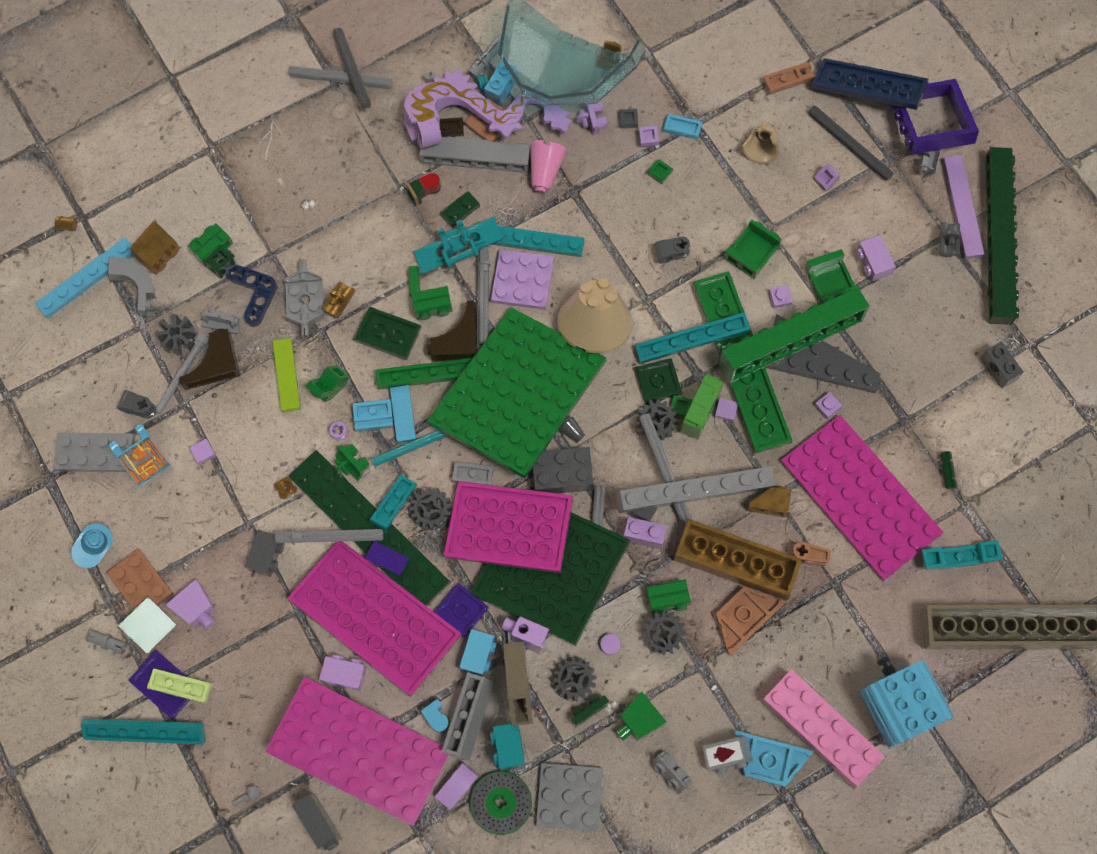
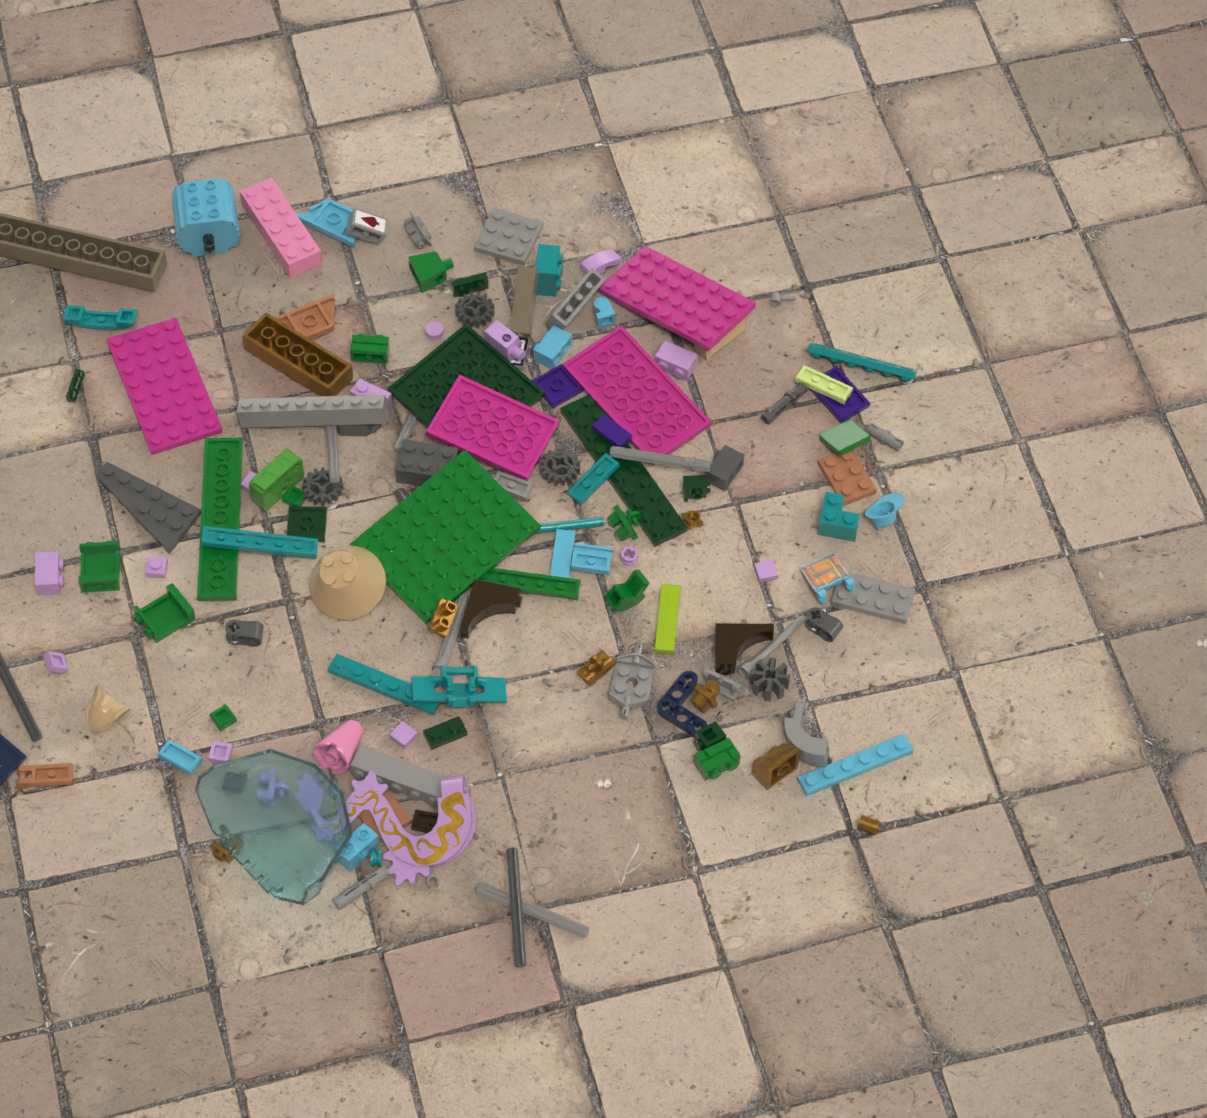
camera: 170 degrees left, 15 degrees down
(144, 522) = (834, 521): none -> teal brick
(193, 605) = (800, 443): lavender torso -> none
(213, 661) = (790, 398): none -> dark grey pin
(230, 293) = (706, 697): none -> pearl gold hips
(289, 520) = (695, 487): none -> dark green brick
(317, 822) = (724, 258): dark grey brick -> none
(388, 333) = (555, 628): dark green plate -> none
(414, 279) = (515, 672): green axle -> none
(423, 187) = (476, 761): leg -> none
(431, 303) = (503, 644): green brick -> none
(494, 307) = (442, 617): none -> pearl gold hips
(496, 197) = (403, 735): none -> lavender tile
(512, 815) = (580, 243): flat silver piece -> none
(522, 279) = (403, 647): lavender plate -> none
(656, 636) = (384, 322): dark grey gear -> none
(772, 502) = (244, 390): pearl gold slope -> none
(793, 334) = (164, 508): green brick -> none
(811, 554) = (231, 349): nougat piece -> none
(828, 405) = (157, 463): lavender plate -> none

